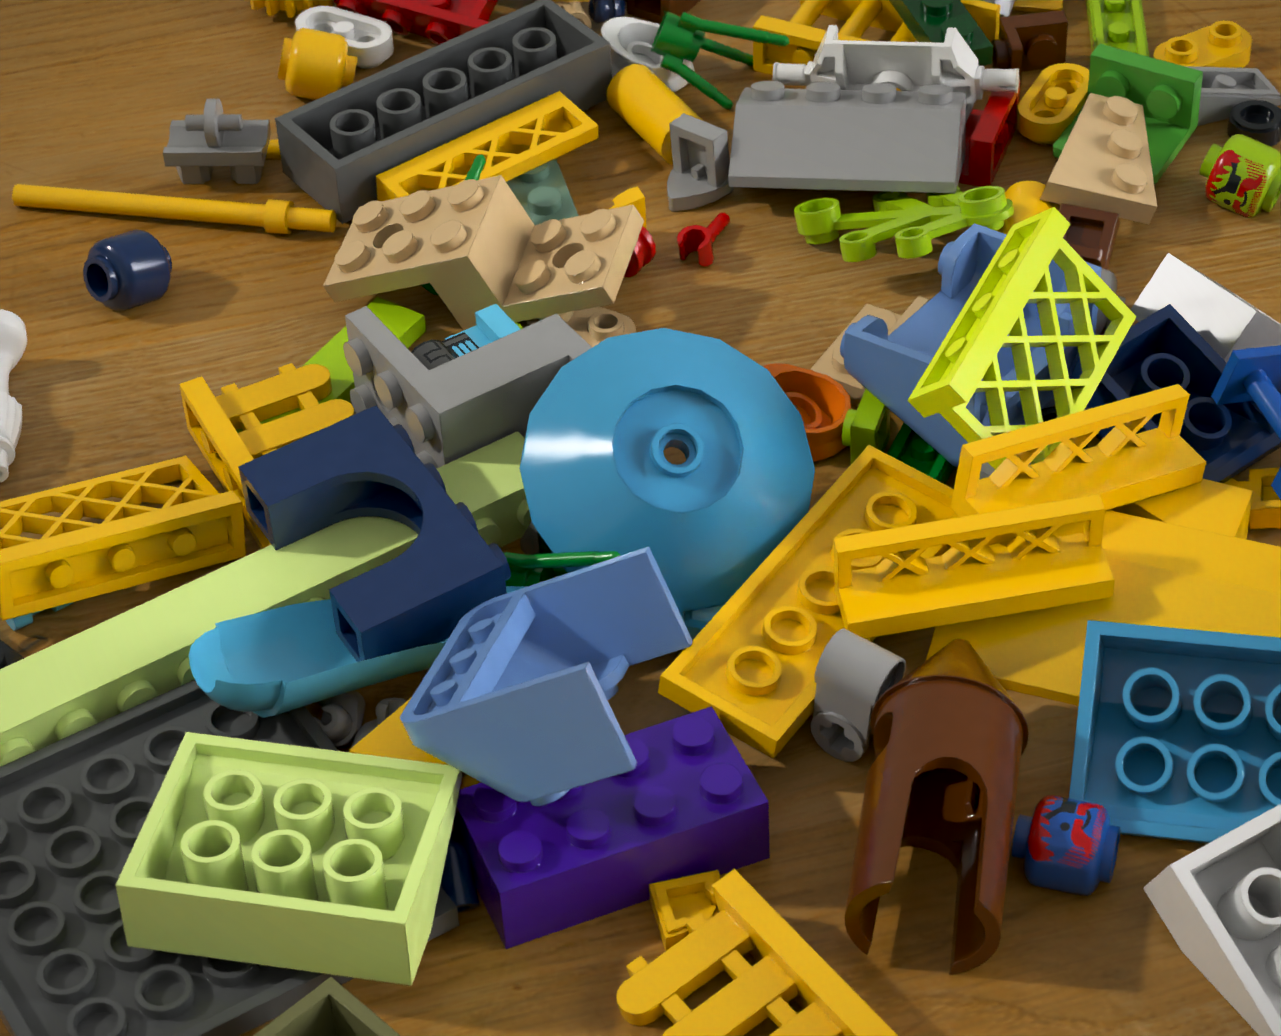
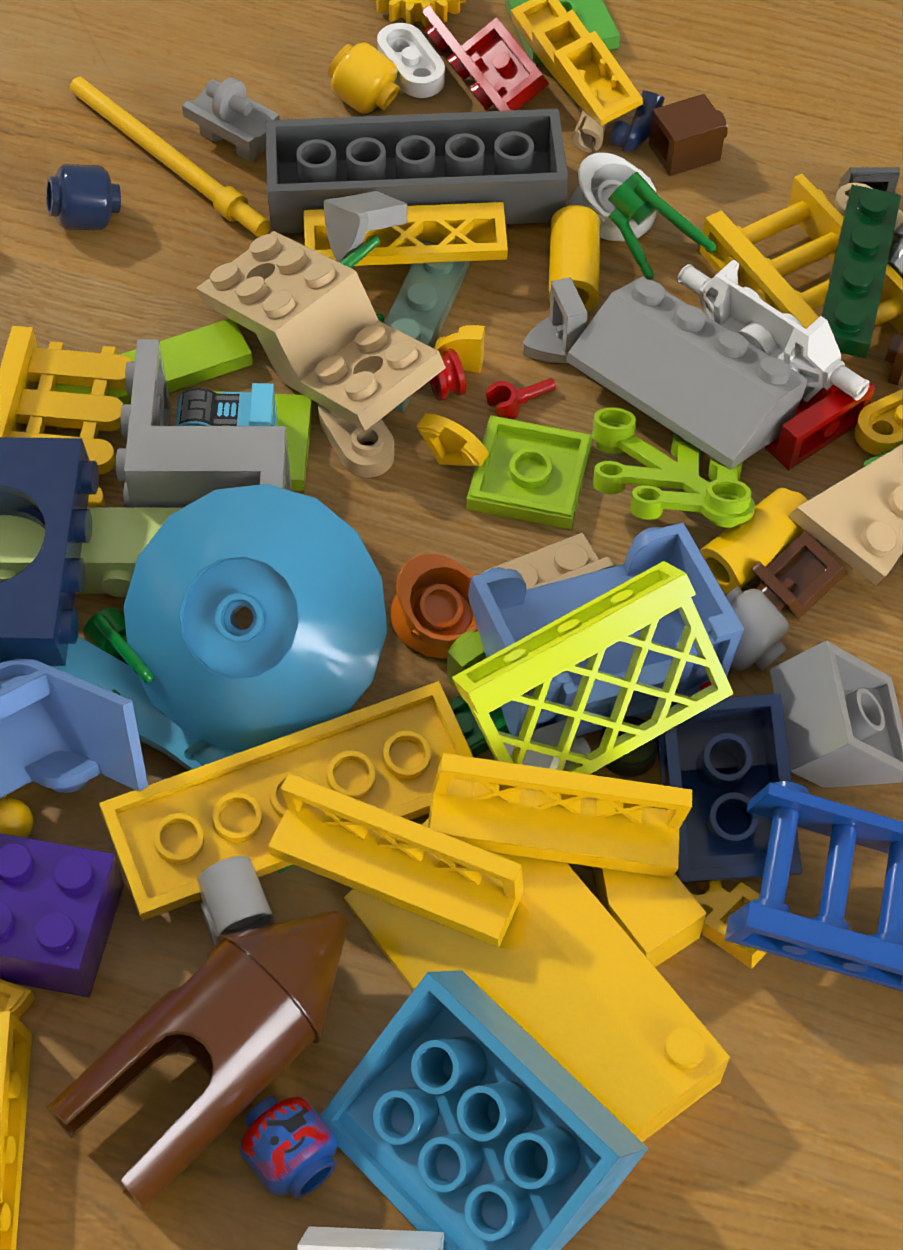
camera: 30 degrees right, 15 degrees up
(446, 152) = (353, 215): none -> light grey tile
(687, 289) = (451, 442): none -> yellow tile
(771, 288) = (530, 472): none -> lime tile

